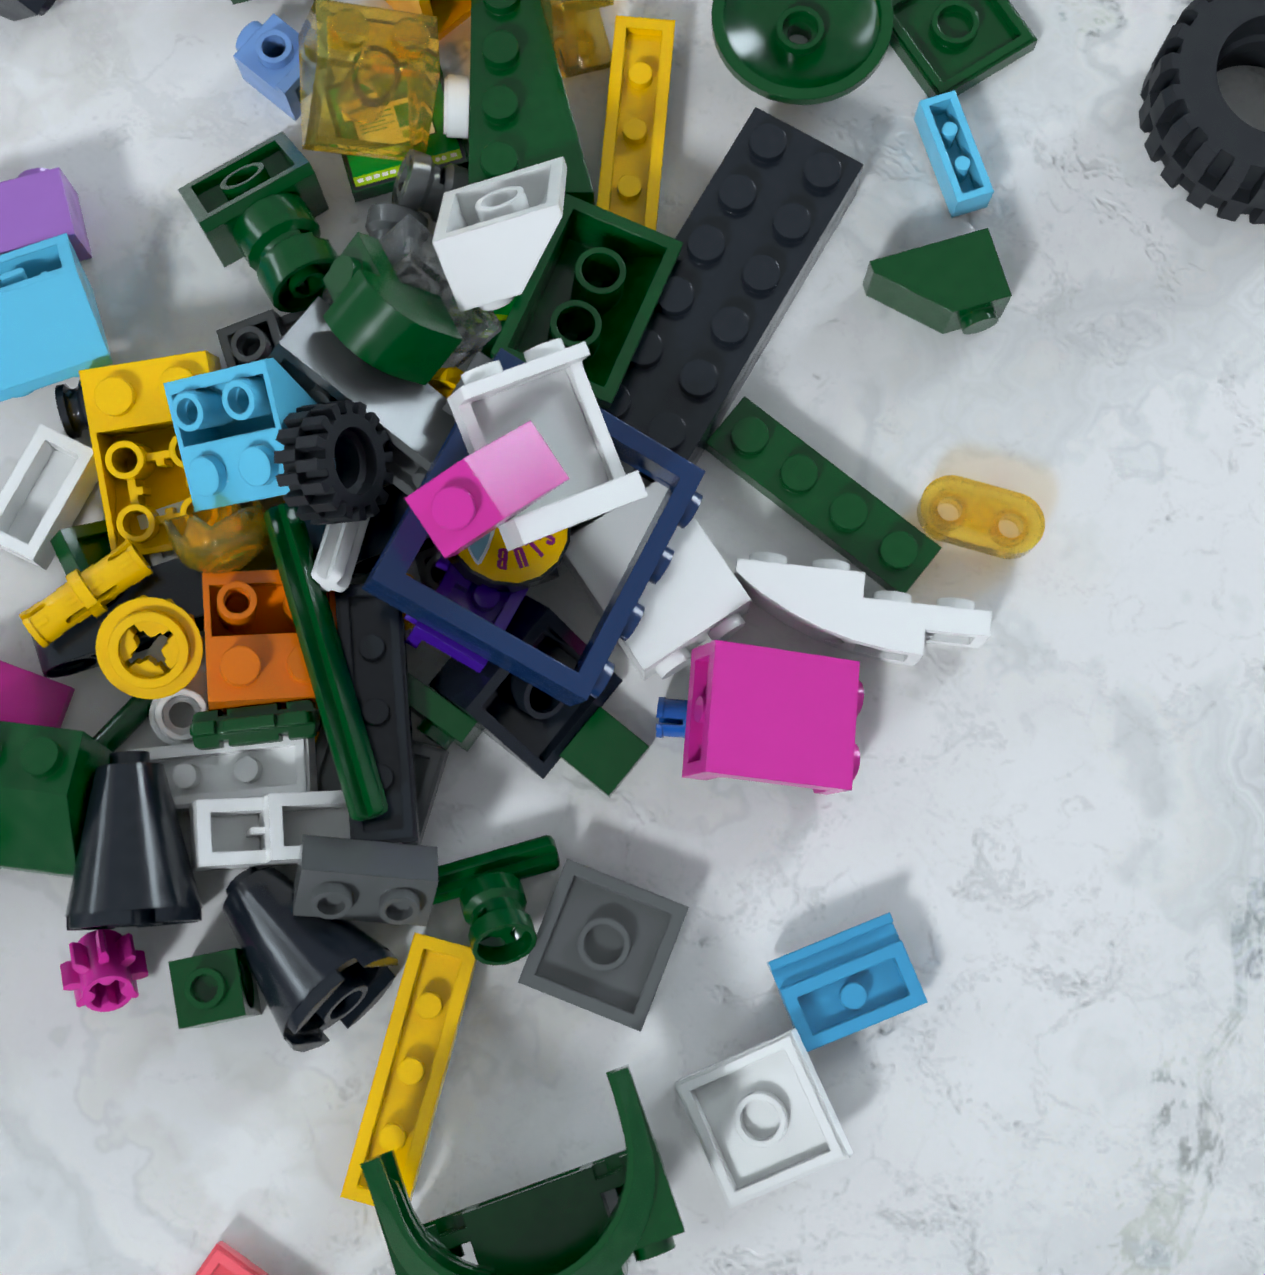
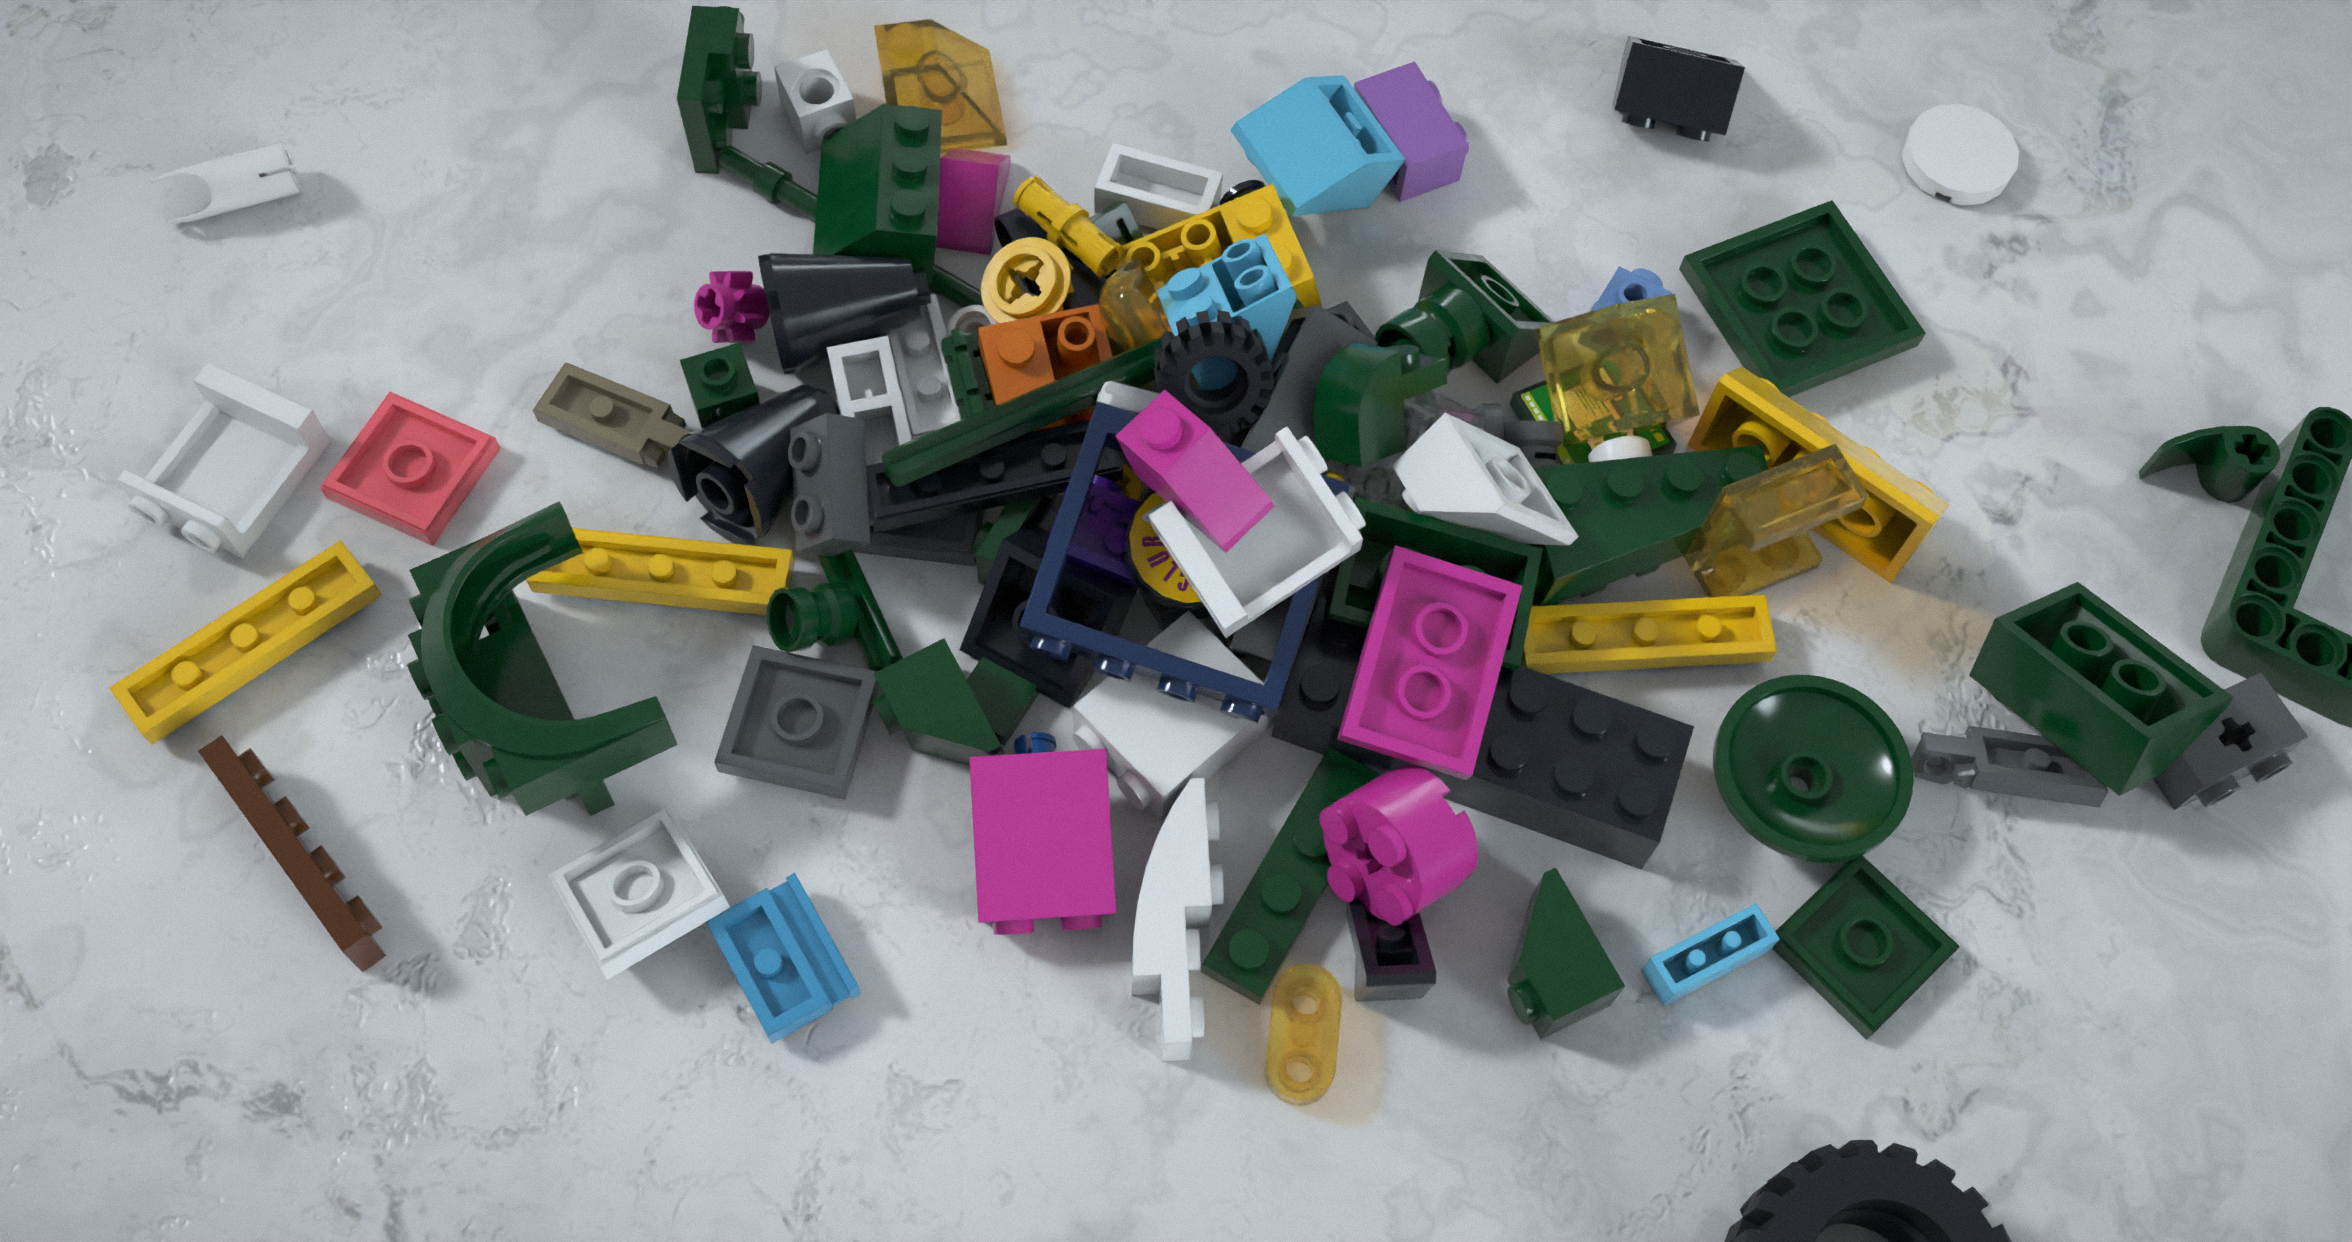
camera: 75 degrees right, 15 degrees down
(217, 1109) = (610, 416): none -> dark tan hinge
(617, 804) = (935, 706): none -> dark green slope
(680, 319) = (1430, 663): none -> dark pink plate
(832, 393) = (1397, 844): none -> dark pink brick
(916, 422) = (1389, 958): none -> black slope

